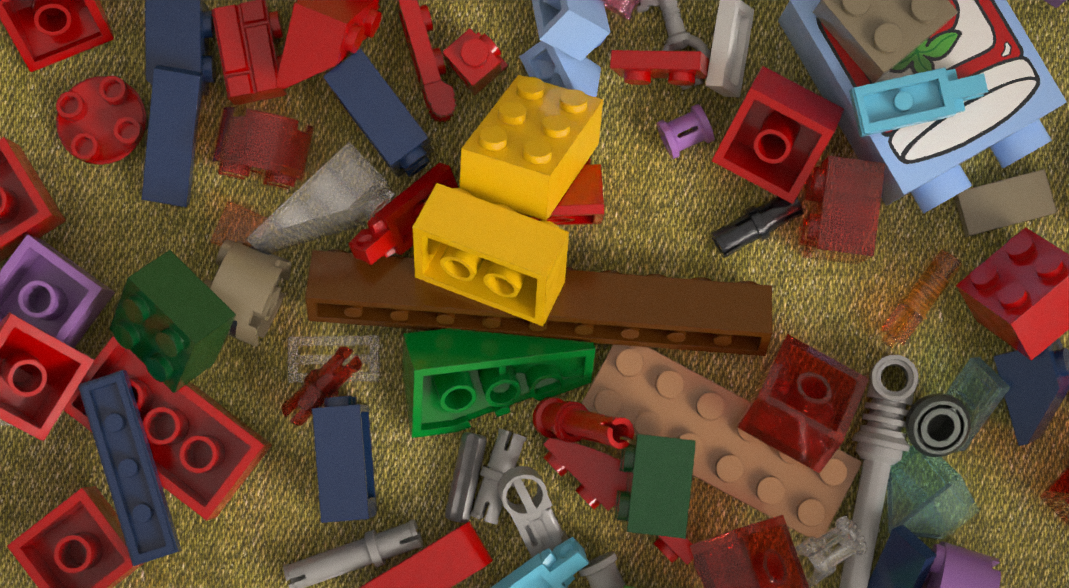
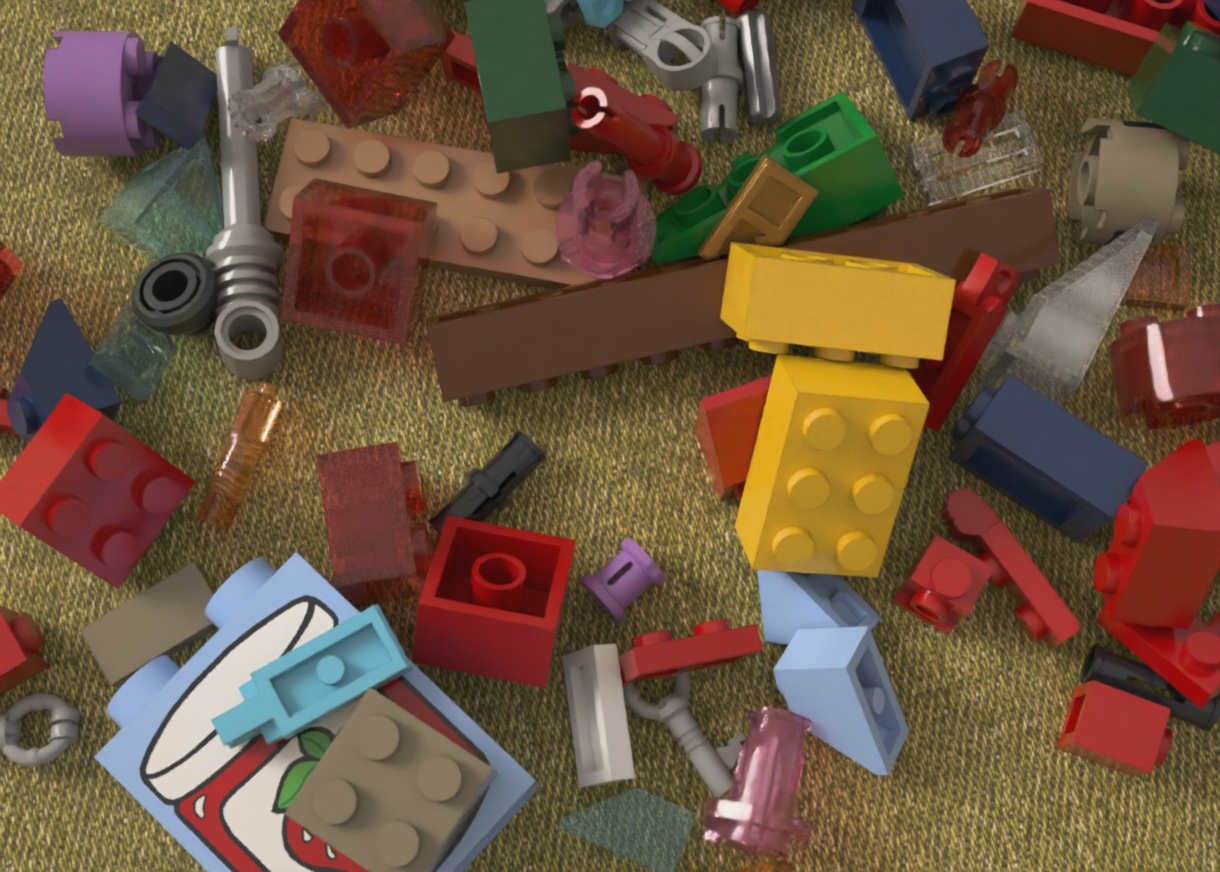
camera: 160 degrees right, 10 degrees down
(511, 347) = (761, 211): none -> pearl gold tile
(605, 361) = (599, 199): none -> clear pink piece

